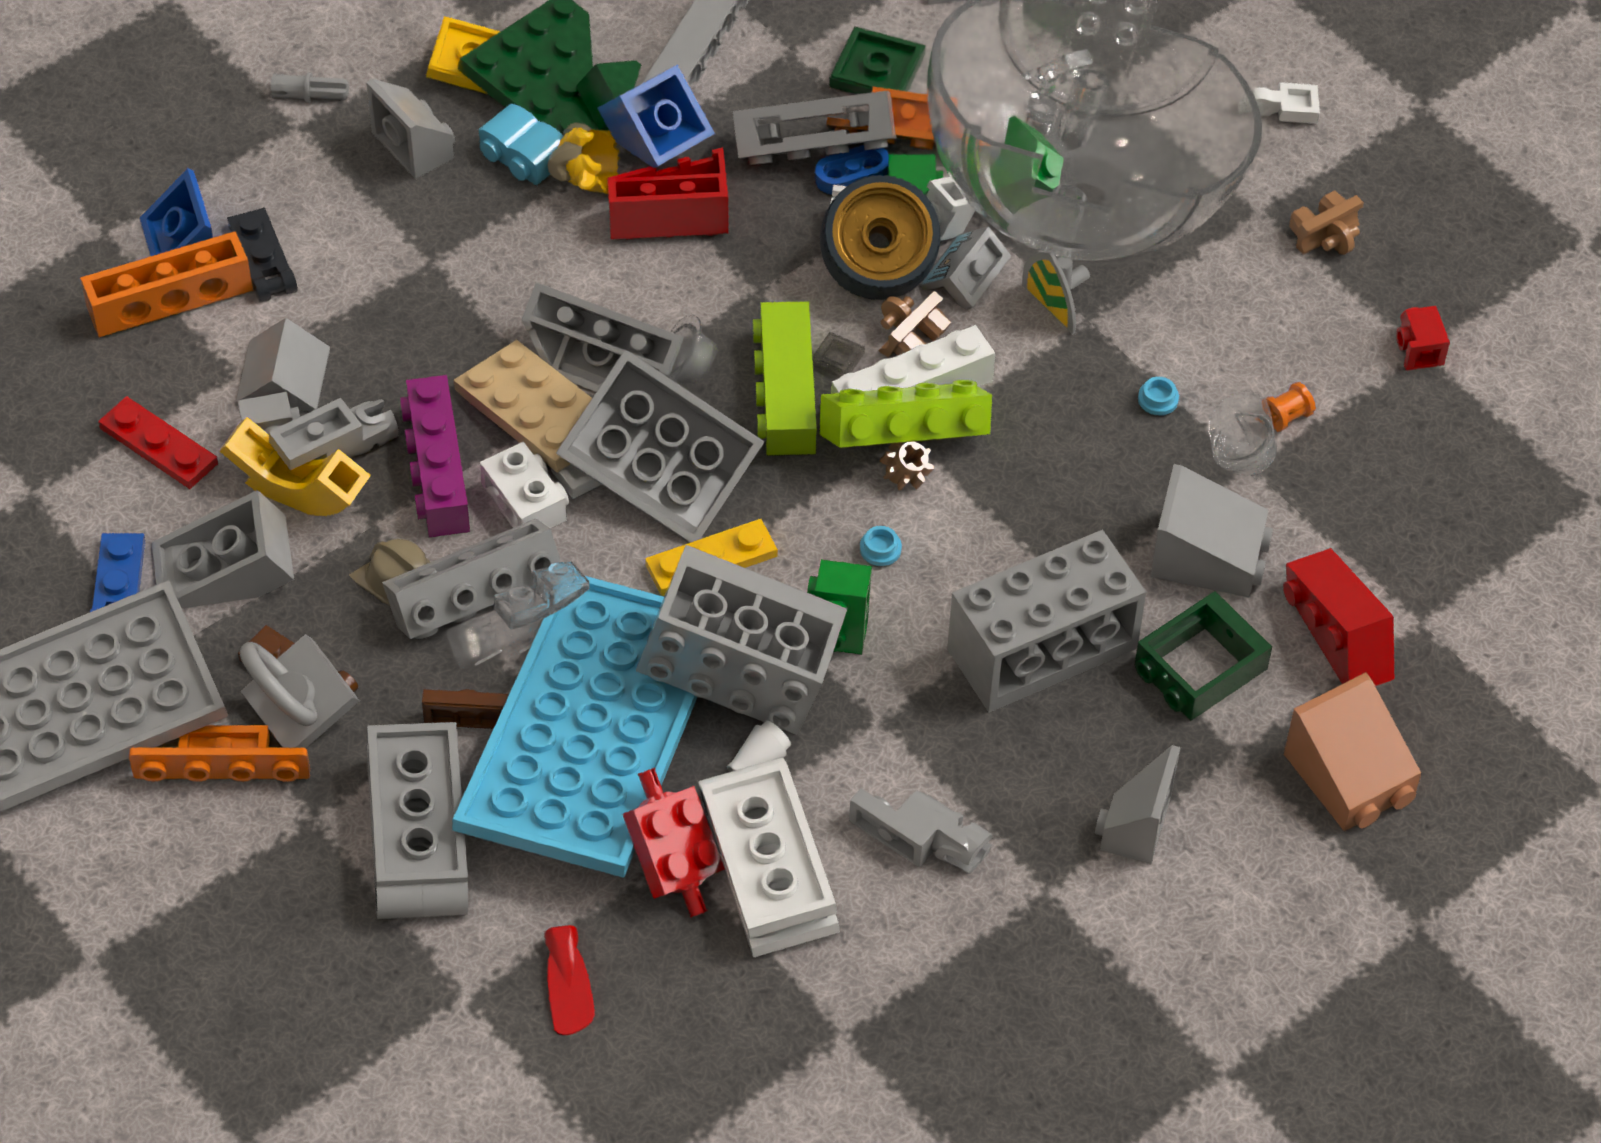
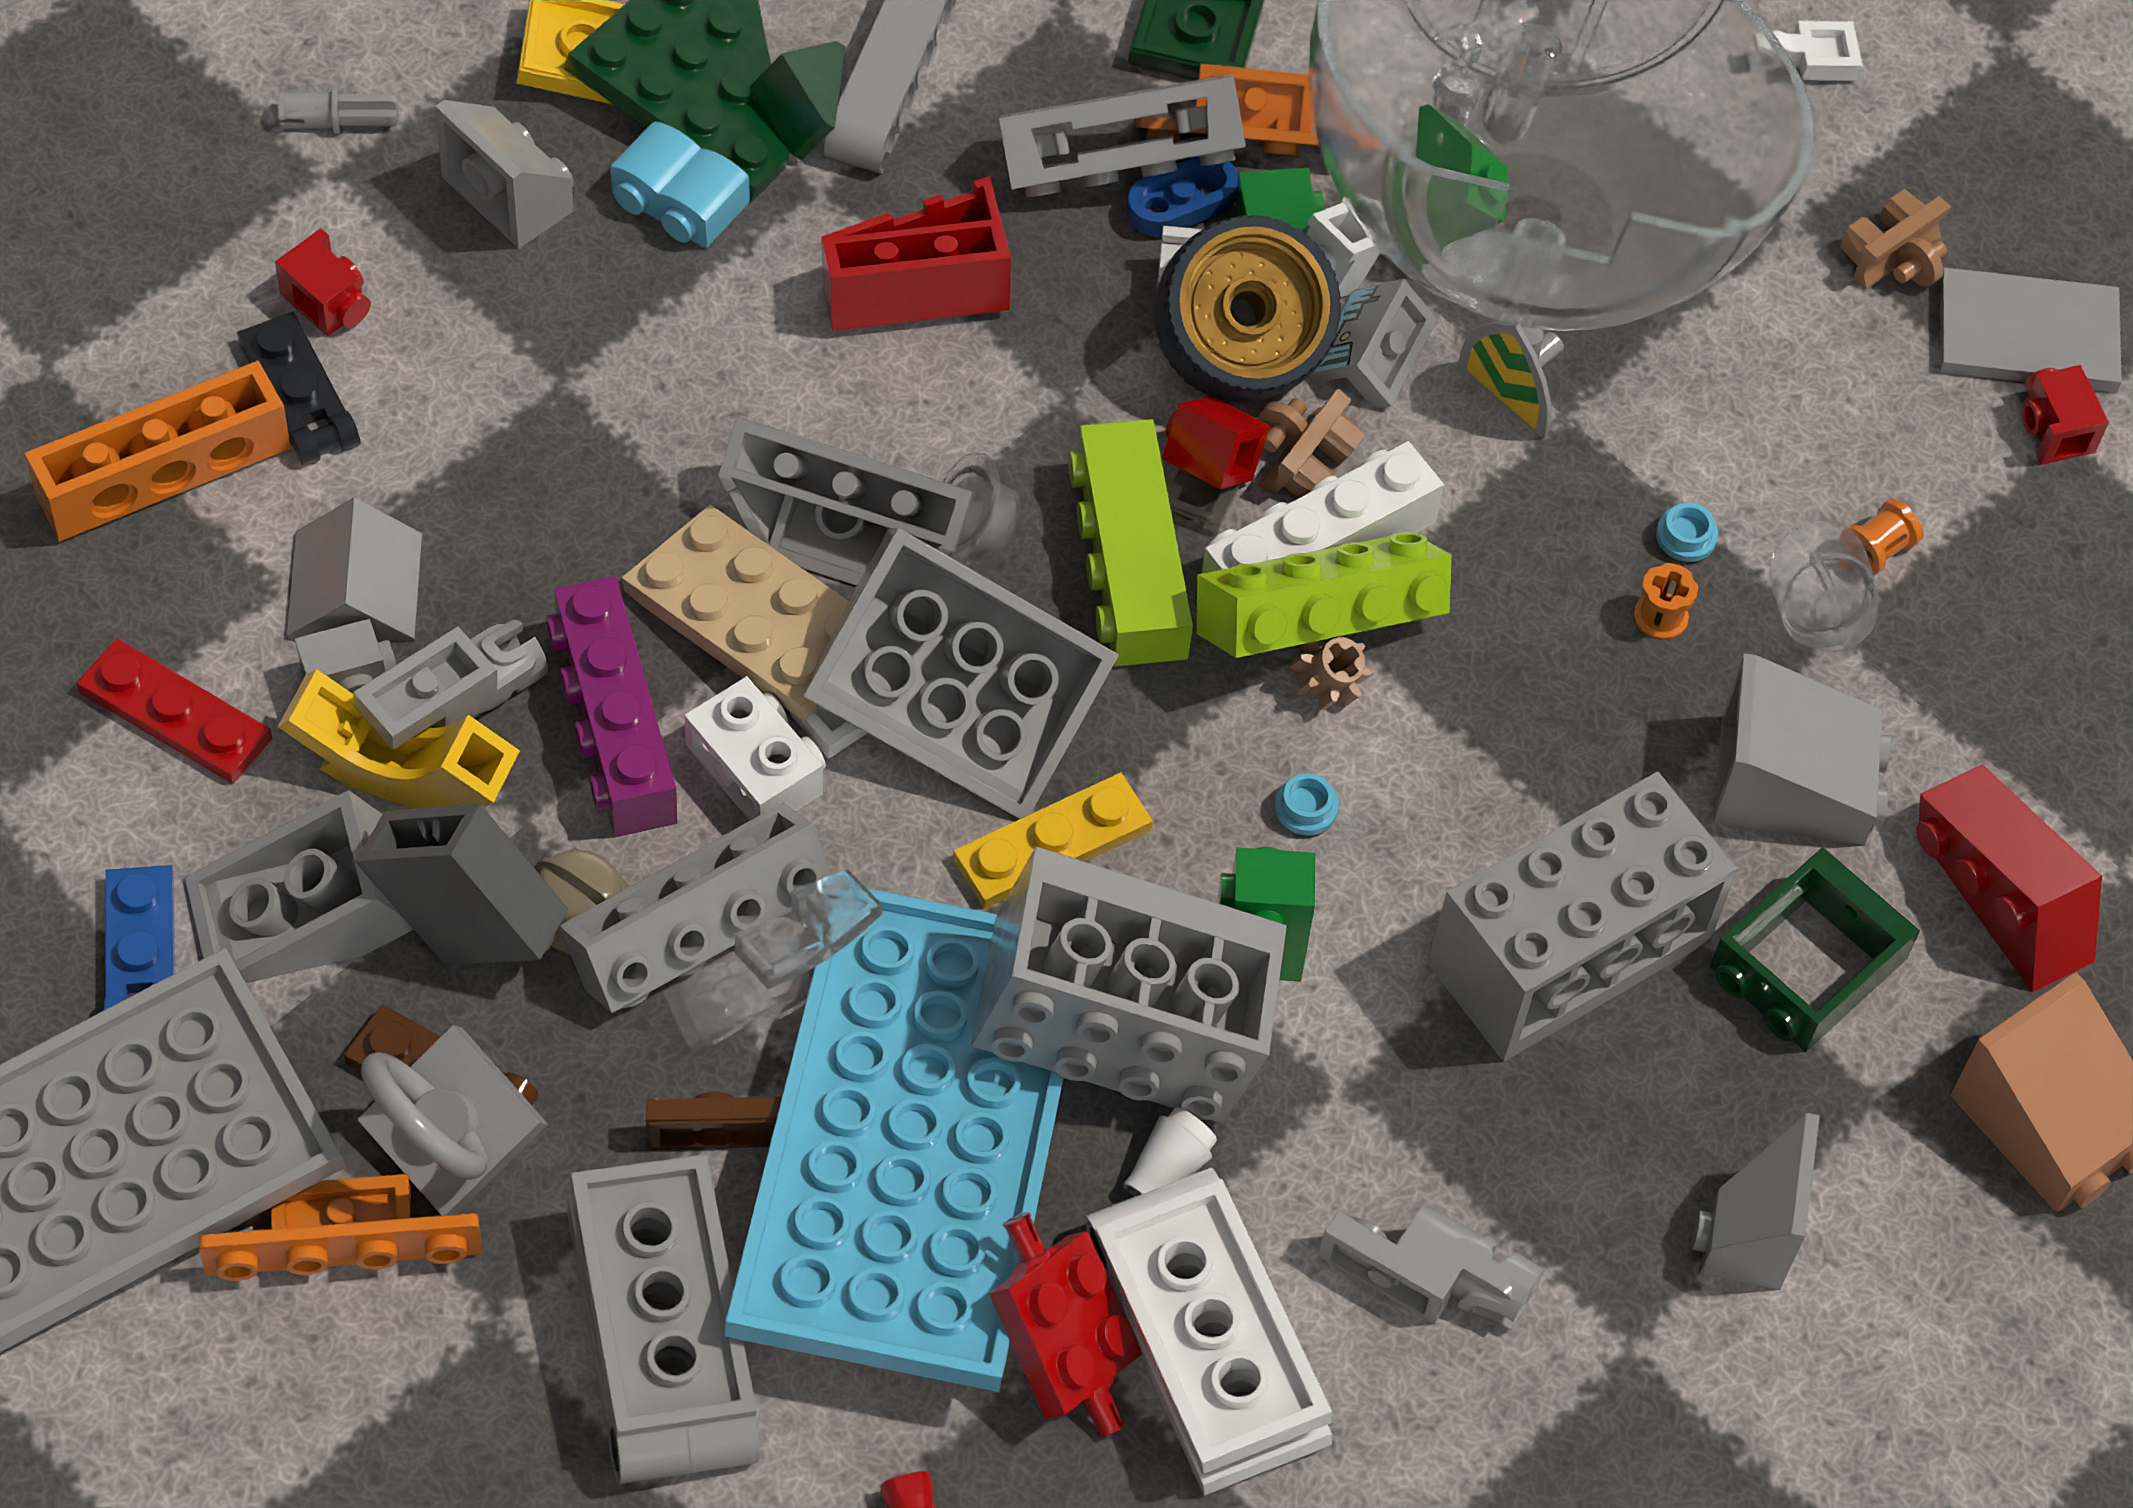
camera: 10 degrees left, 5 degrees up
(177, 217) = (161, 342): blue slope -> none
(284, 191) = (322, 284): none -> red brick
(322, 551) = (462, 884): none -> dark grey brick
(585, 158) = (781, 204): yellow hair -> none
(657, 118) = (886, 136): blue slope -> none
(850, 319) = (1215, 441): none -> red brick
(1130, 430) = (1656, 599): none -> orange bush
(1395, 279) = (2025, 324): none -> light grey tile

